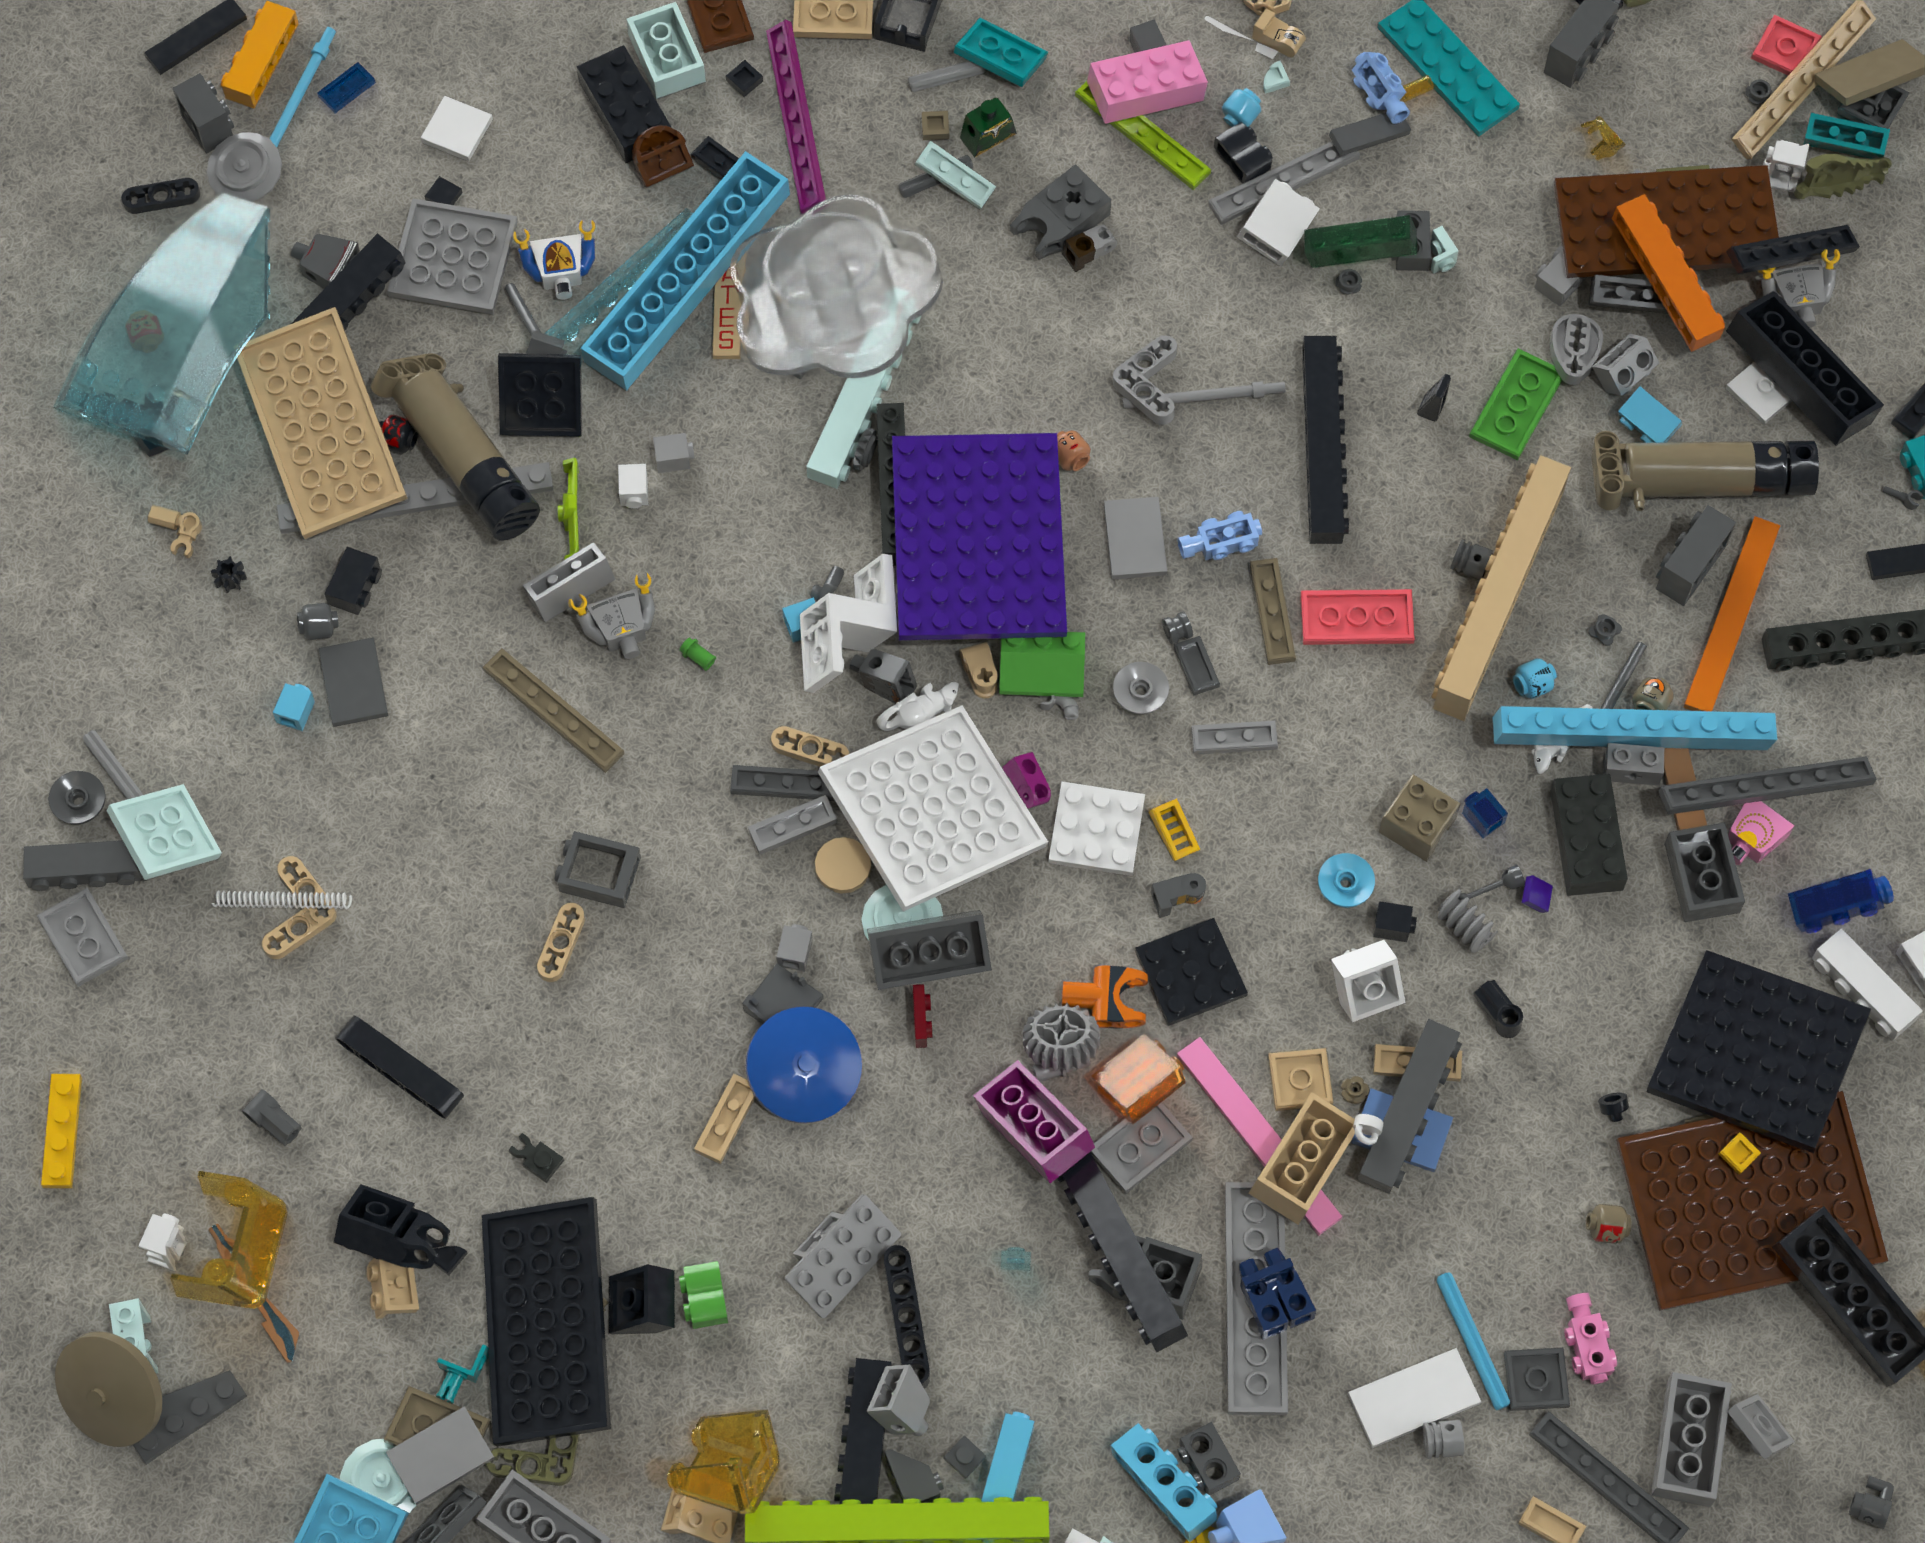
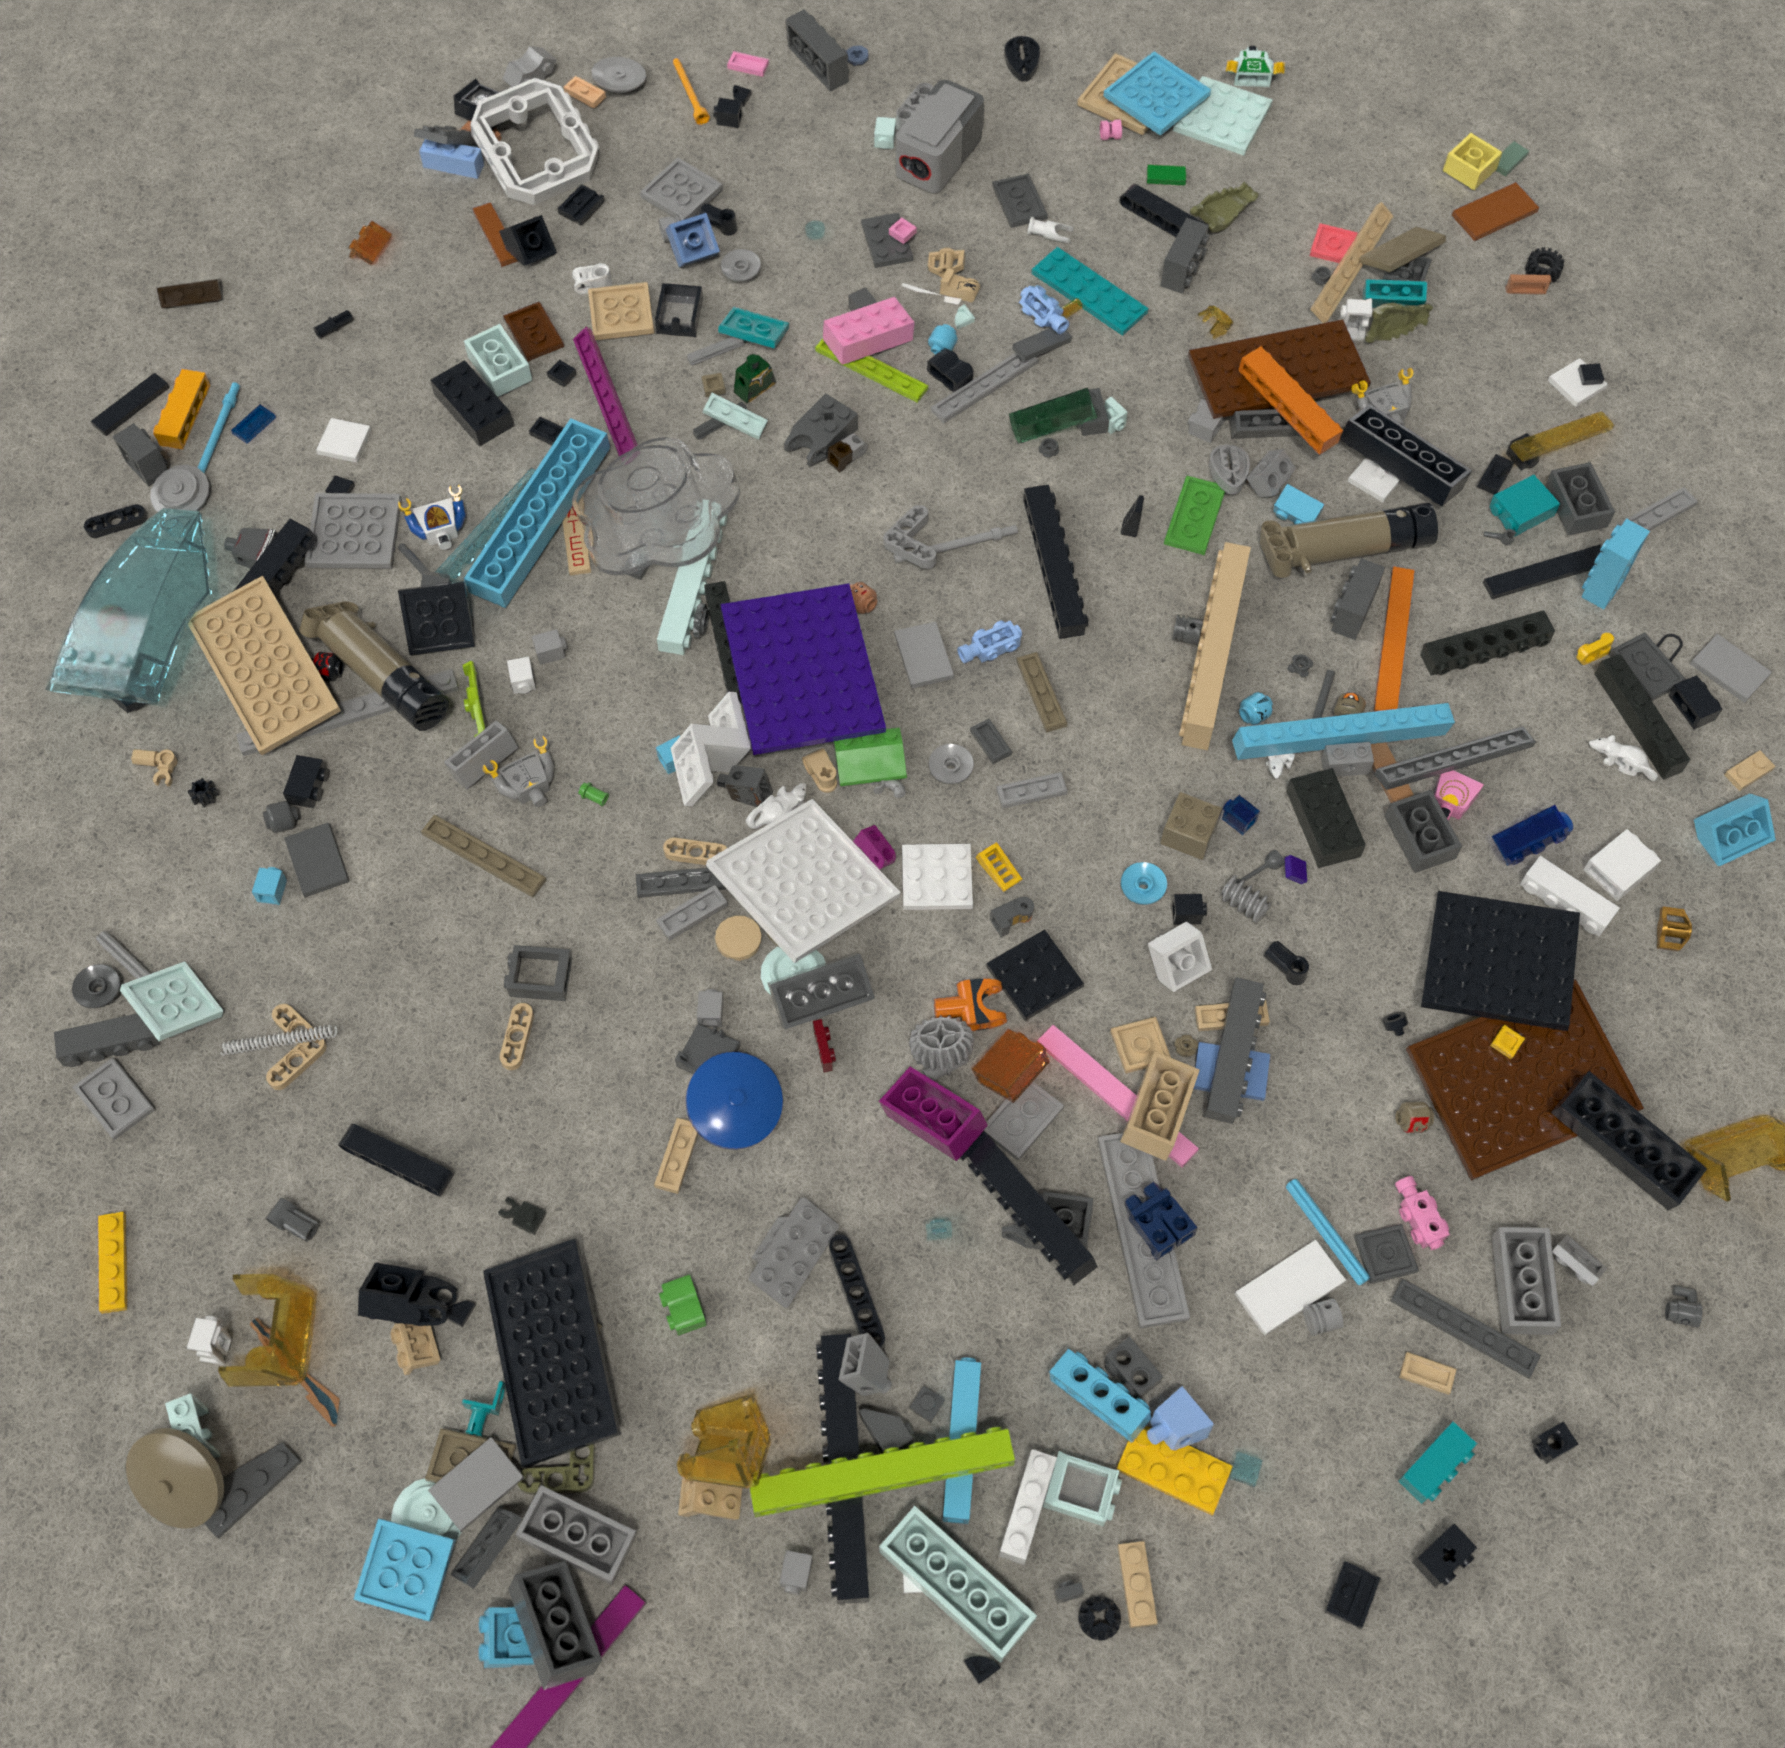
camera: 10 degrees left, 5 degrees down
(642, 1300) = (630, 1319): black slope -> none
(660, 154) = (505, 433): reddish brown slope -> none
(830, 585) = (693, 718): dark grey arm -> none
(1177, 627) = (970, 714): dark grey wheel -> none
(1278, 222) = (987, 413): white brick -> none
(1357, 617) = (1108, 686): coral tile -> none
(1367, 1125) = (1207, 1069): white tile -> none
(1792, 249) = (1375, 373): black tile -> none

